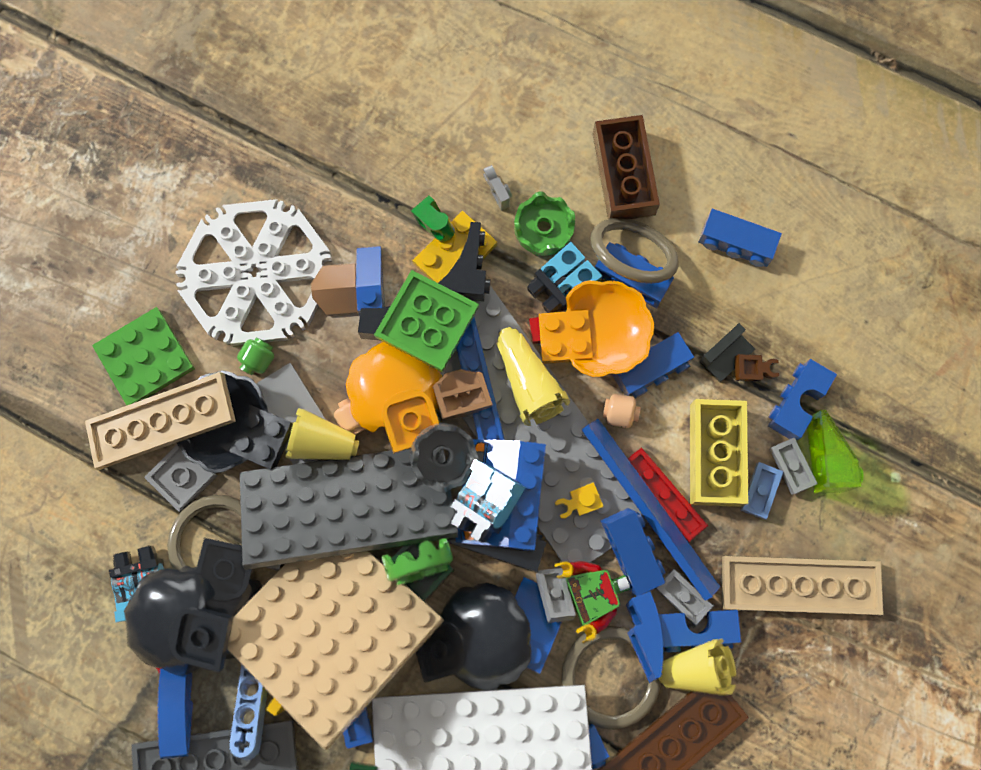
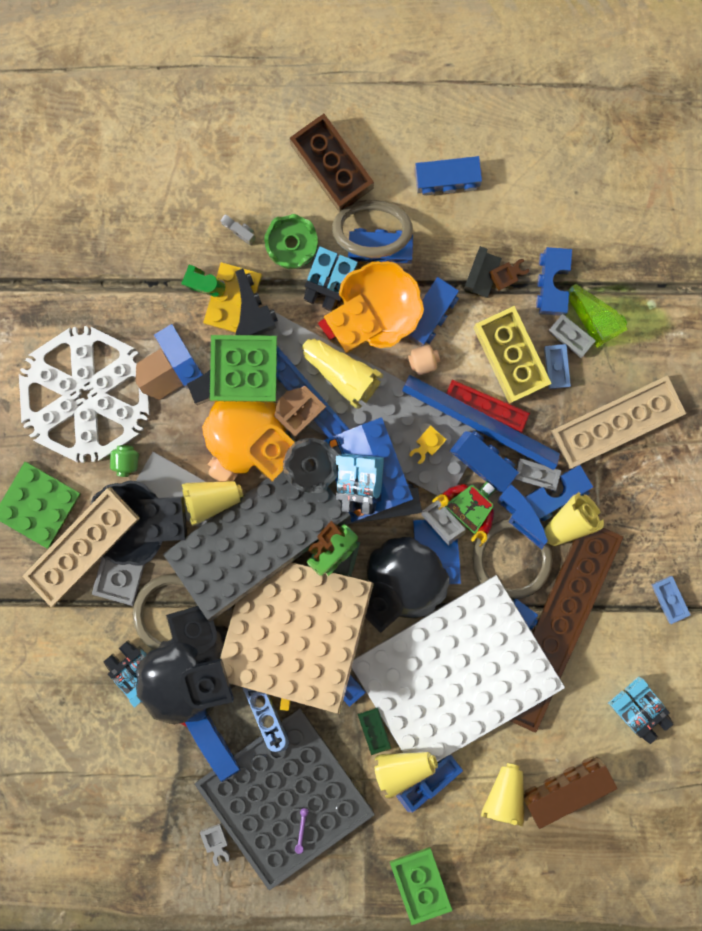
camera: 25 degrees left, 10 degrees up
(411, 549) = (325, 540): none -> reddish brown plate

